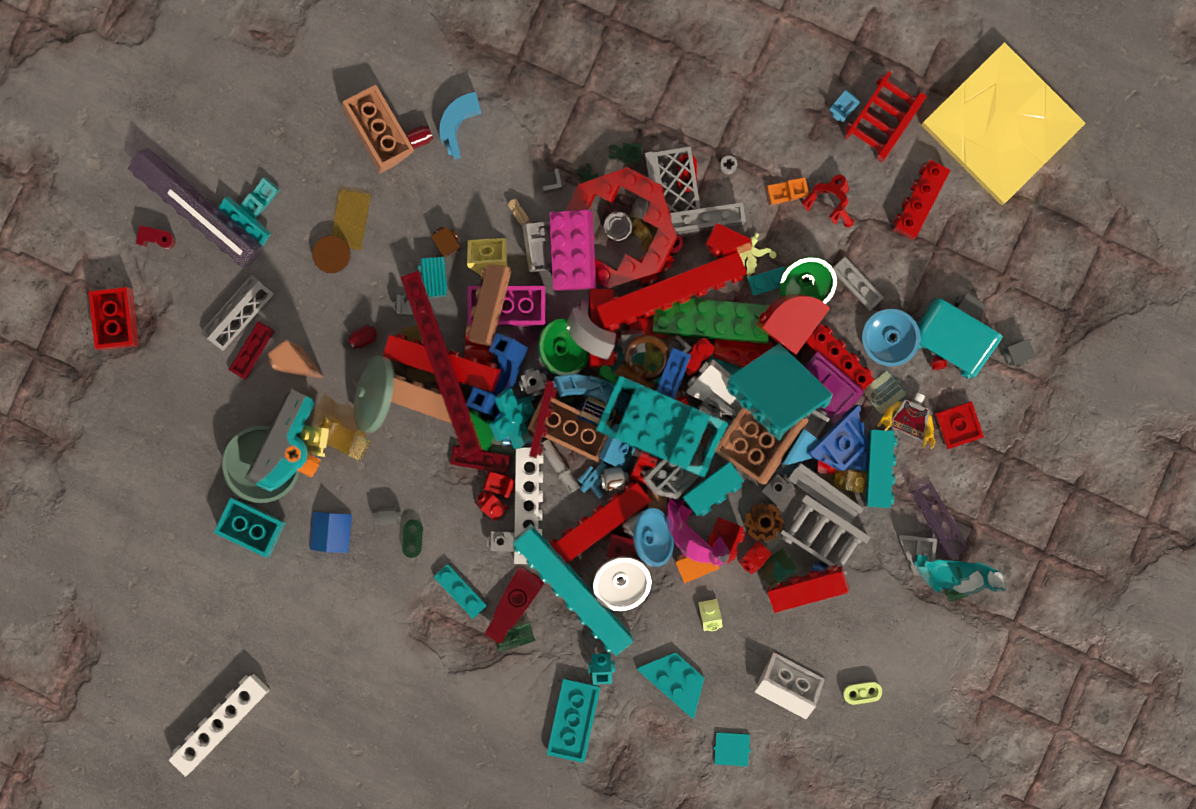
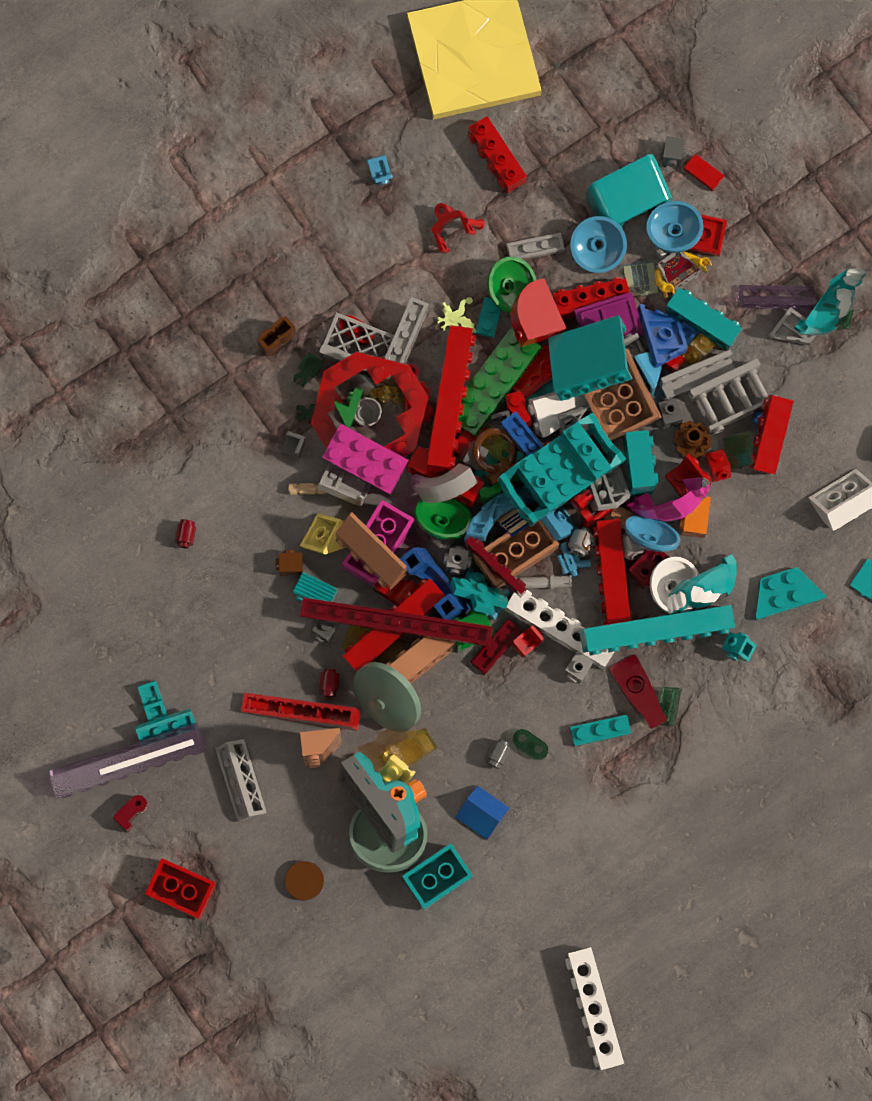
camera: 65 degrees left, 10 degrees down
(184, 417) = (304, 880): none -> reddish brown tile
(251, 350) = (281, 787): dark red tile -> none
(324, 328) = (302, 711): none -> red slope
(331, 254) = (240, 668): reddish brown tile -> none
(351, 217) = (220, 635): clear yellow piece -> none
(377, 128) = (157, 563): nougat slope -> none
(456, 112) = (184, 482): dark azure arch -> none
(491, 505) = (541, 659): red bracket -> none
(573, 720) = (769, 698): teal plate -> none
(606, 209) = (348, 411): none -> green slope
(633, 106) = (280, 333): none -> reddish brown brick
(634, 611) = (705, 587): none -> teal animal
(710, 615) = (746, 530): yellowish green bracket -> none
(724, 160) = (375, 290): light grey bush -> none
(726, 242) = (436, 328): red slope -> none
(787, 191) = (422, 258): orange slope -> none
(902, 117) = (427, 144): red fence -> none
(938, 363) = (642, 221): red plate -> none
(957, 388) = (675, 217): none -> dark azure dish
(970, 305) = (609, 166): dark grey brick -> none
(1017, 391) = (704, 172): none -> red tile

